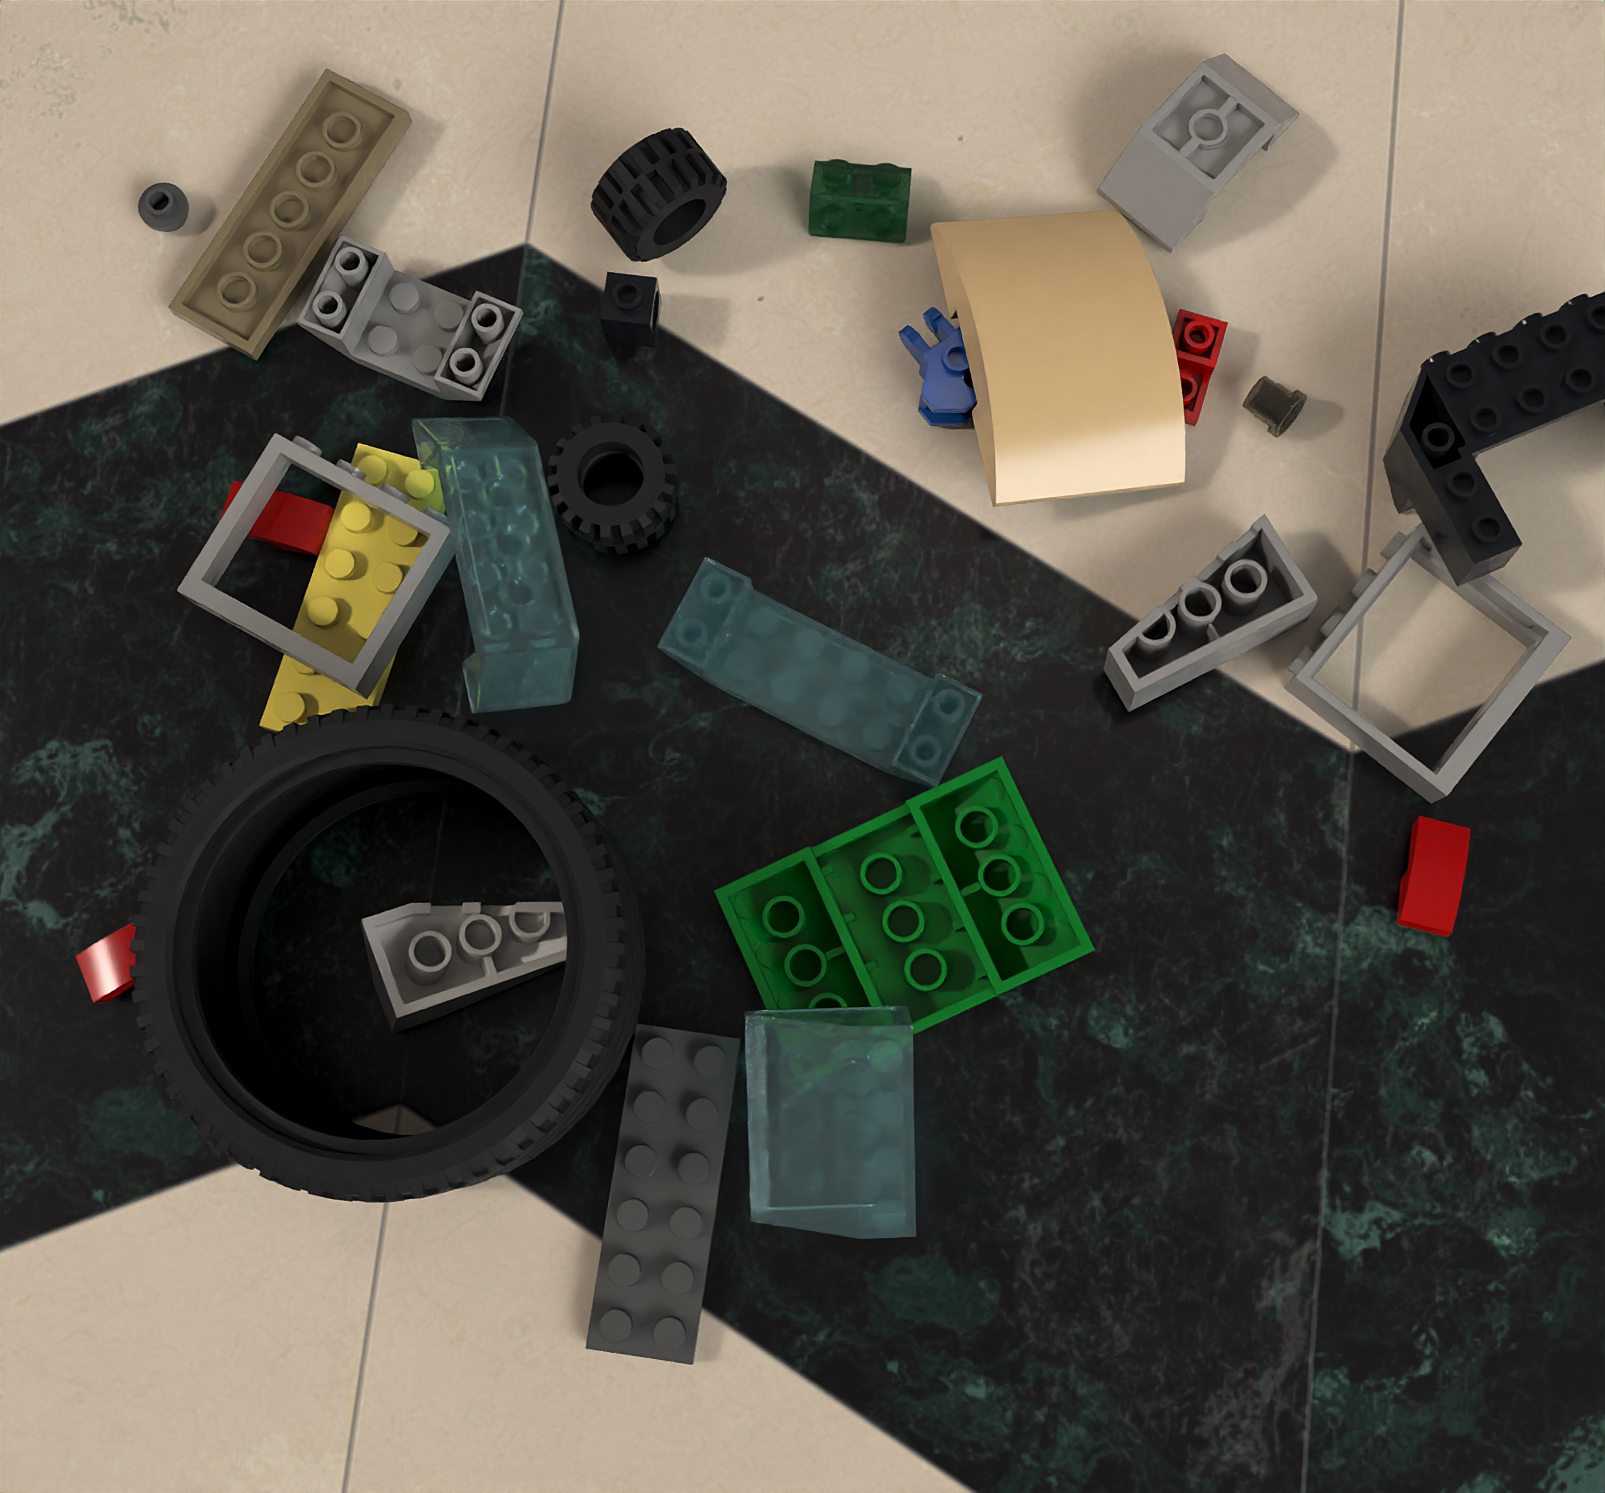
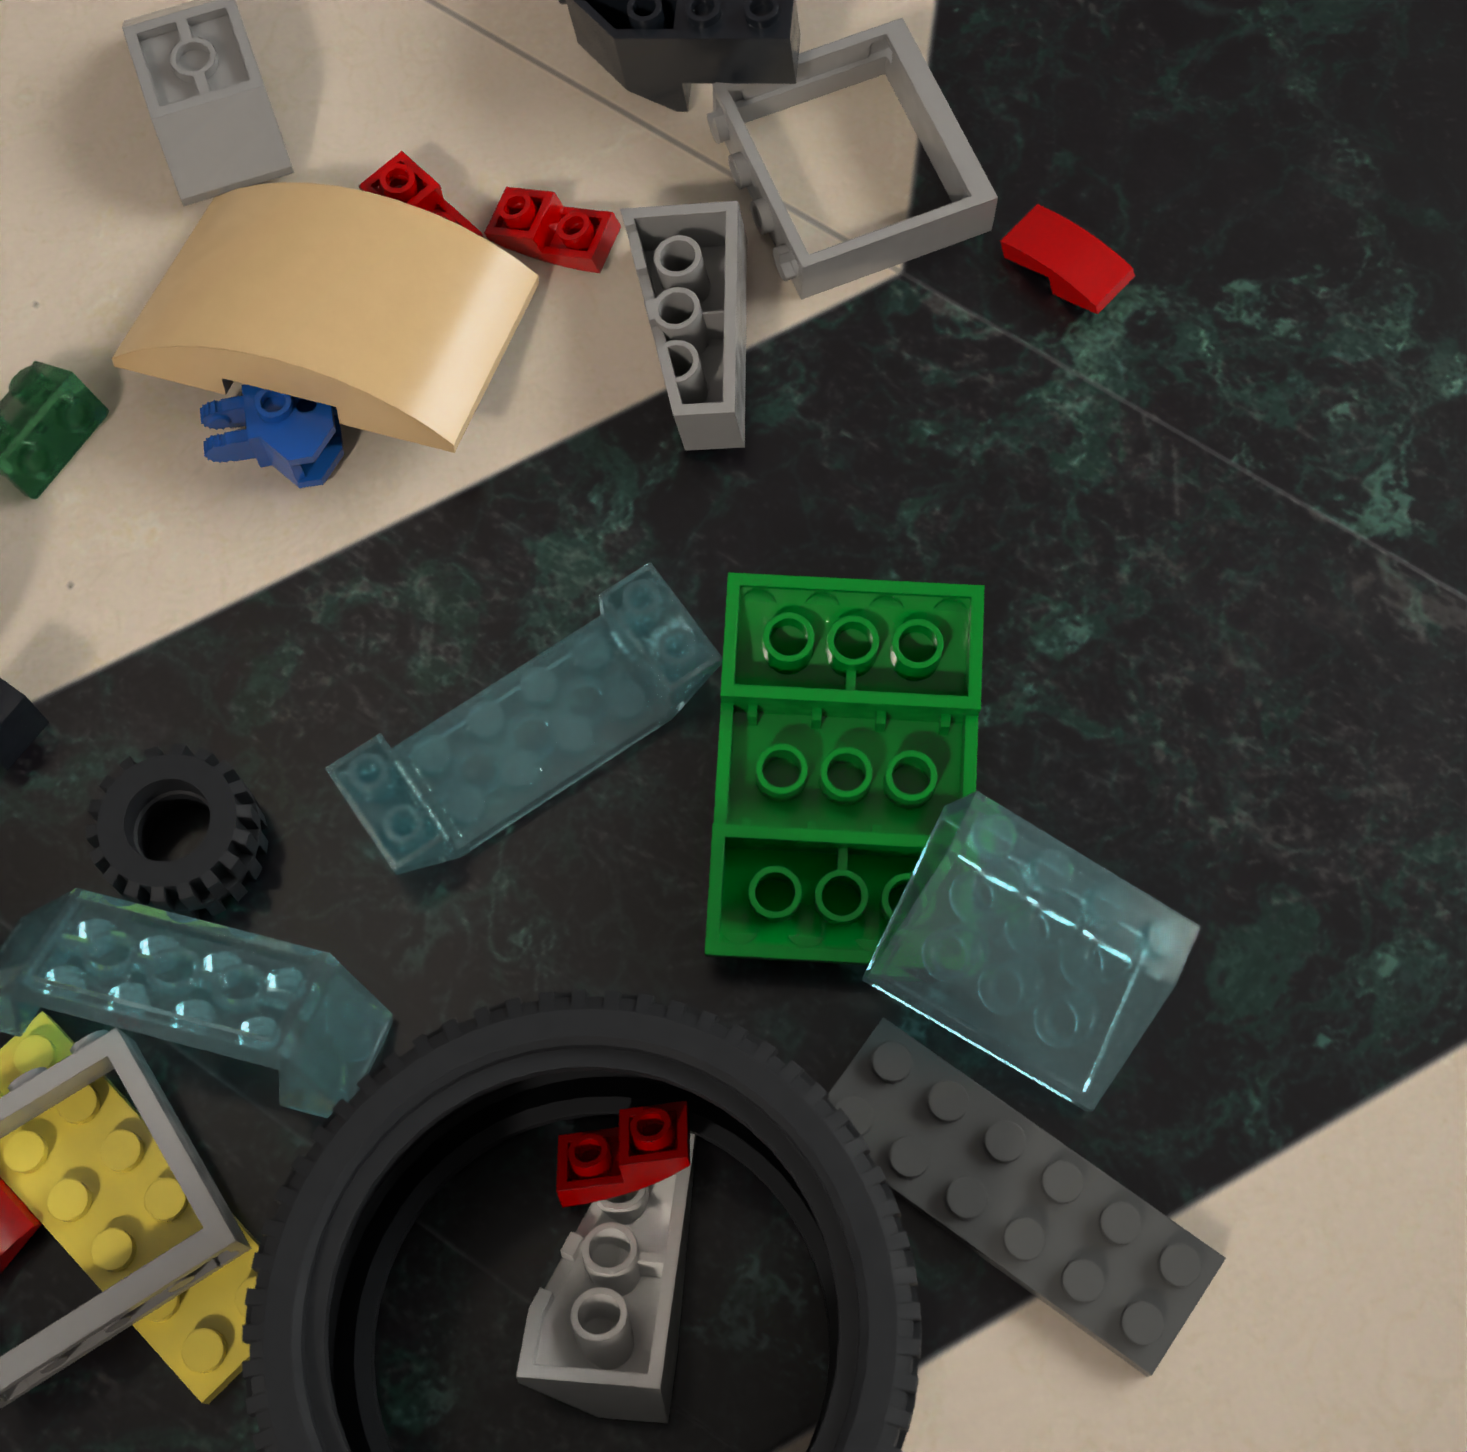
camera: 65 degrees left, 10 degrees down
(537, 905) = (624, 1159): none -> red slope
(1231, 470) = (547, 231): none -> red slope
(1274, 405) = (510, 157): clear smoke piece -> none

